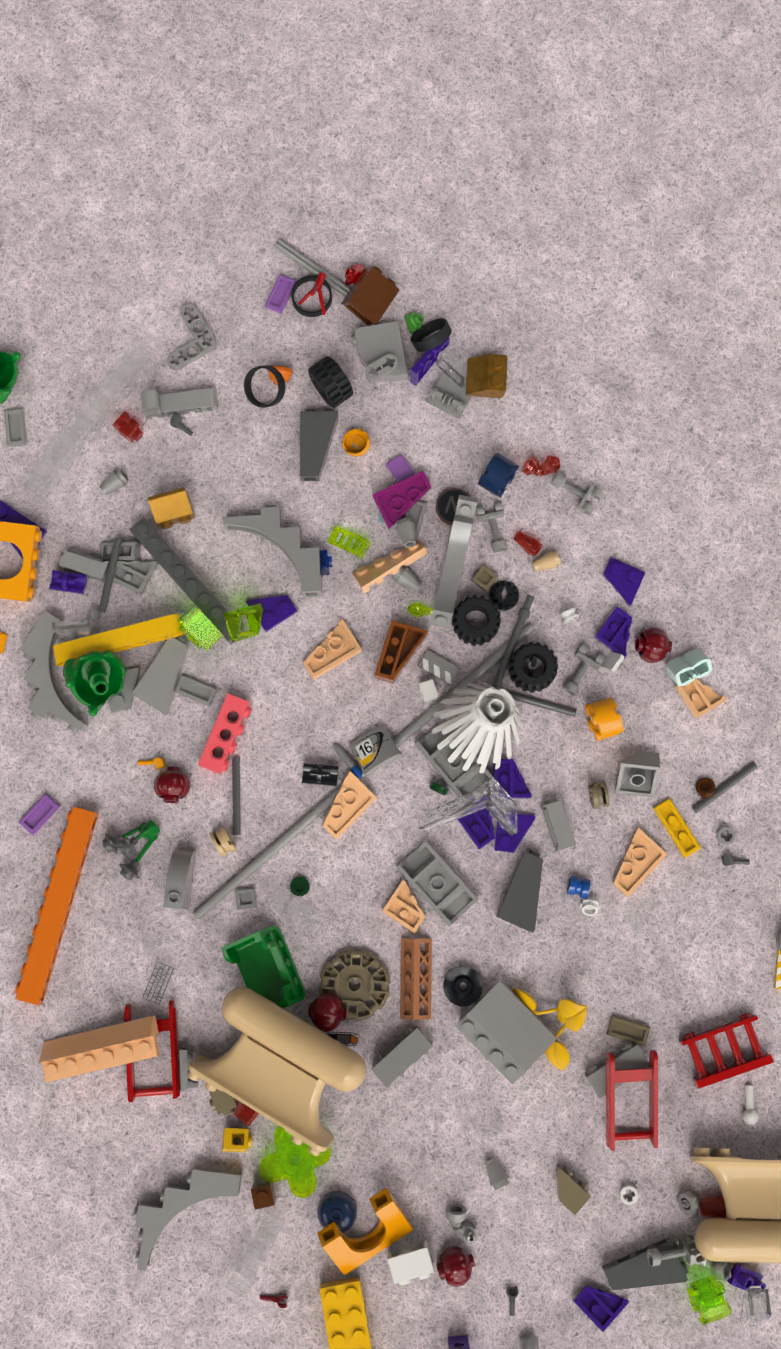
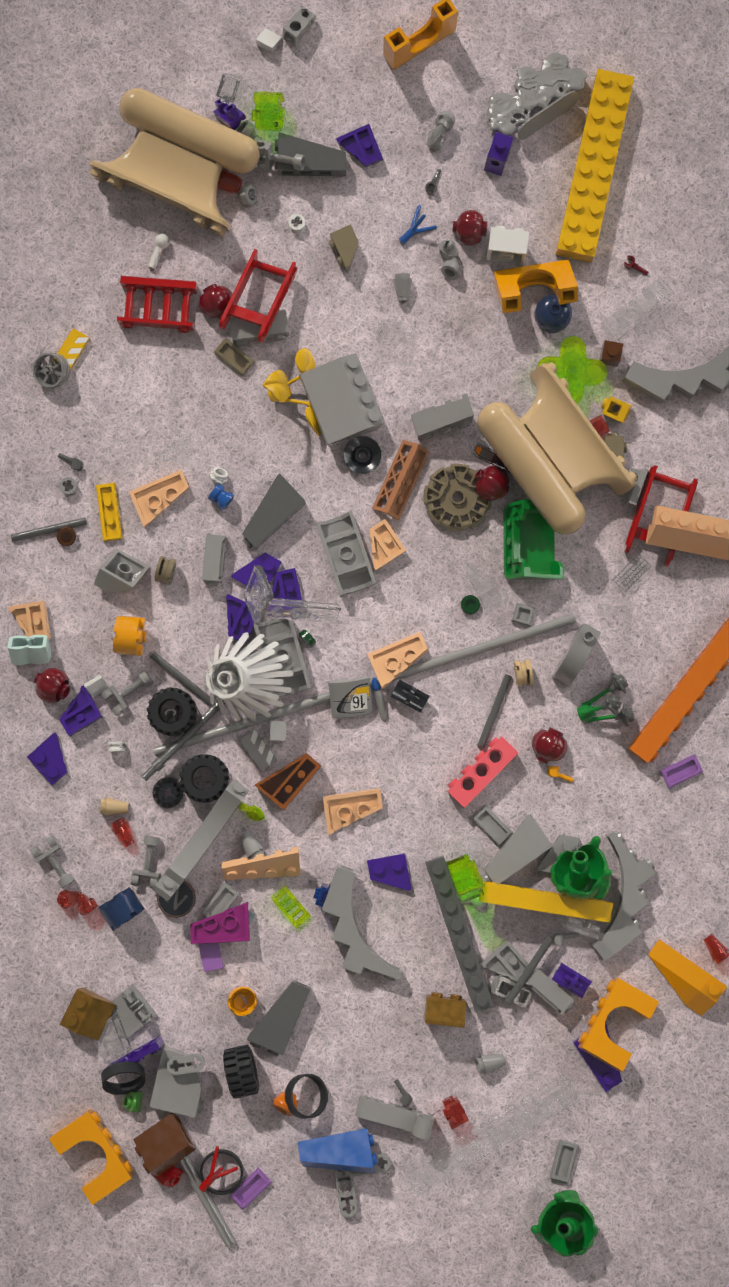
camera: 160 degrees left, 5 degrees up
(214, 353) = (340, 1152): none -> blue slope
(234, 621) = (429, 873): clear neon green tile -> none
(406, 530) = (232, 890): light grey cone -> none
(442, 283) = (88, 1128): none -> light orange arch
(484, 578) = (178, 815): dark tan plate -> none
(511, 1242) = (413, 229): none -> blue plant
(671, 1078) = (214, 301): none -> dark red plant

